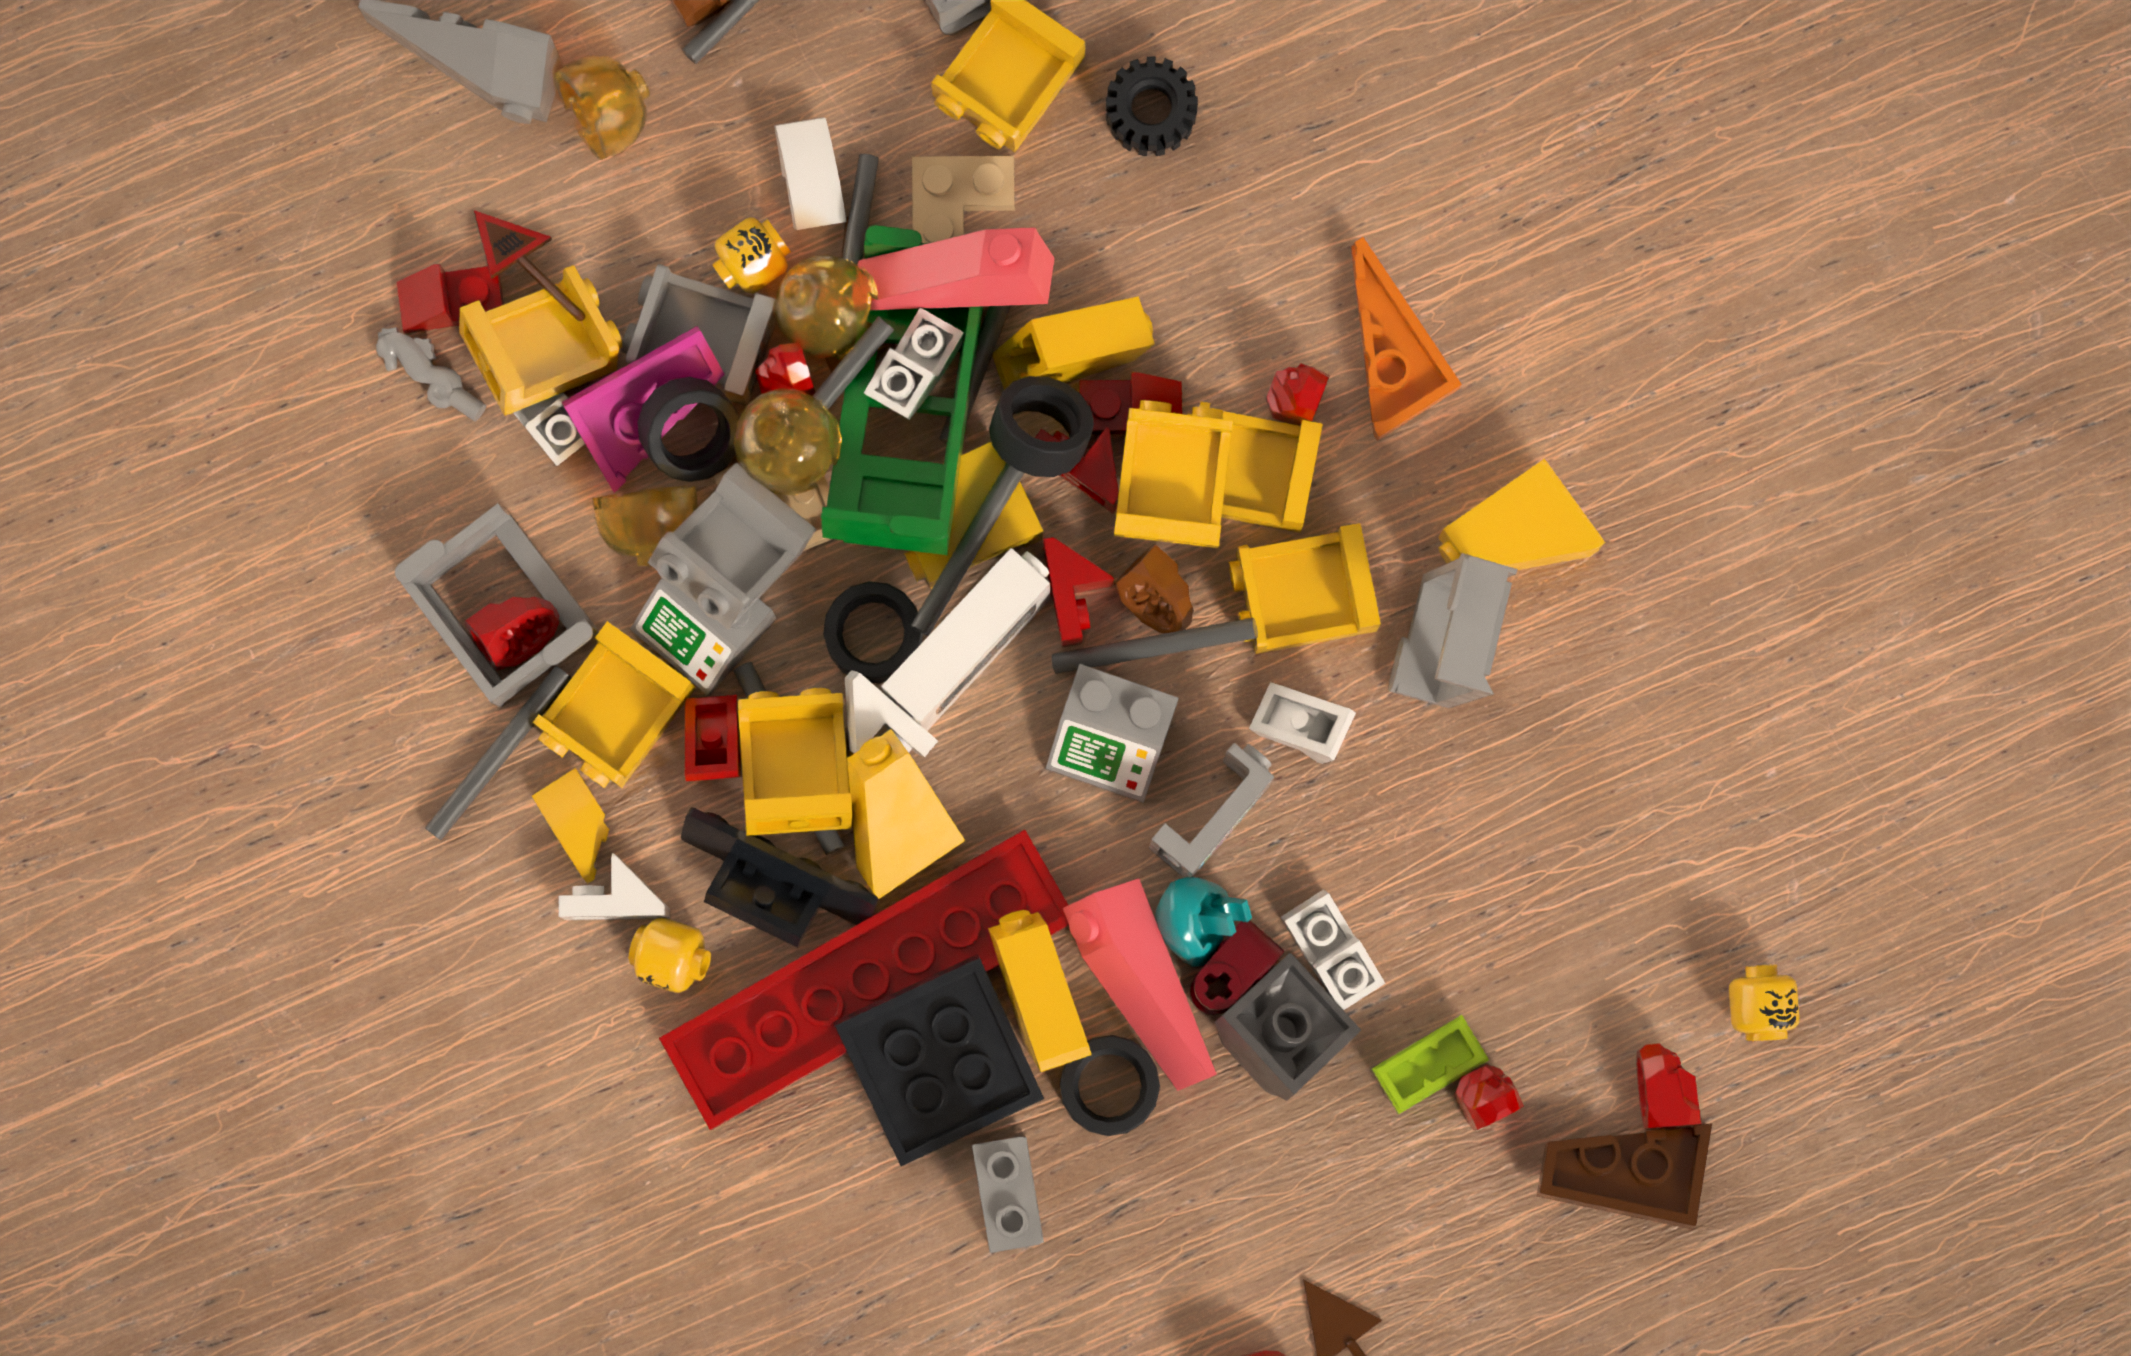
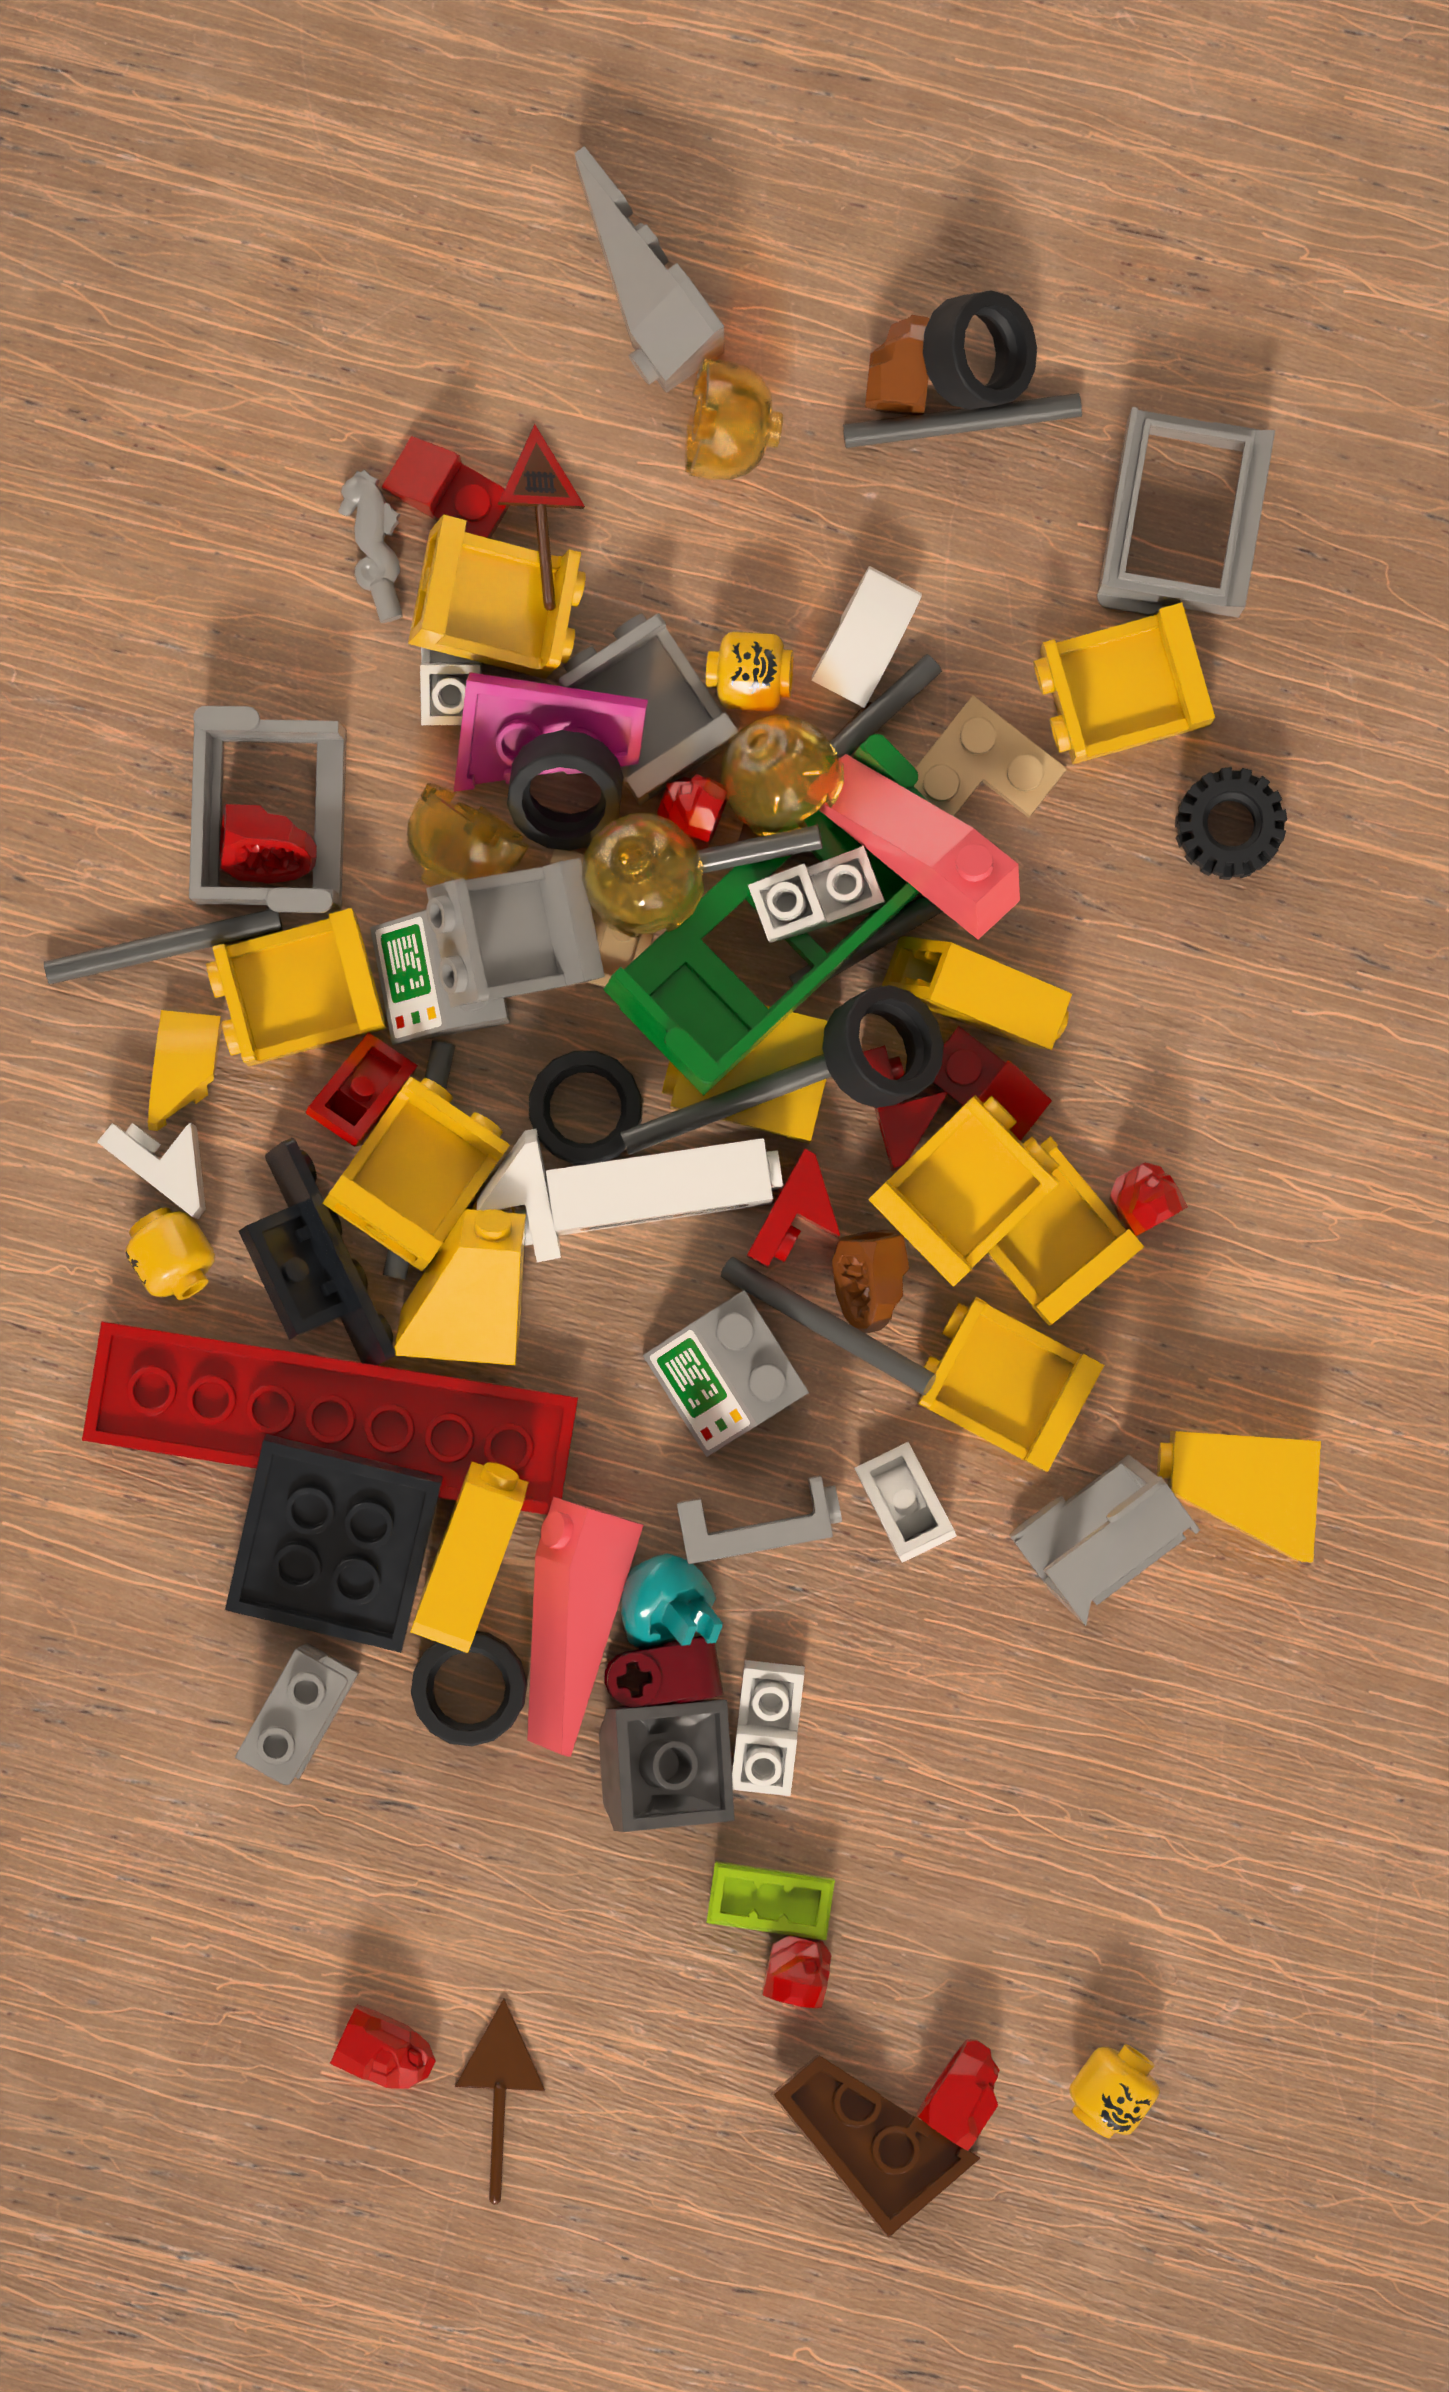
camera: 40 degrees right, 5 degrees up
(1400, 357) = (1268, 1242): orange wing -> none

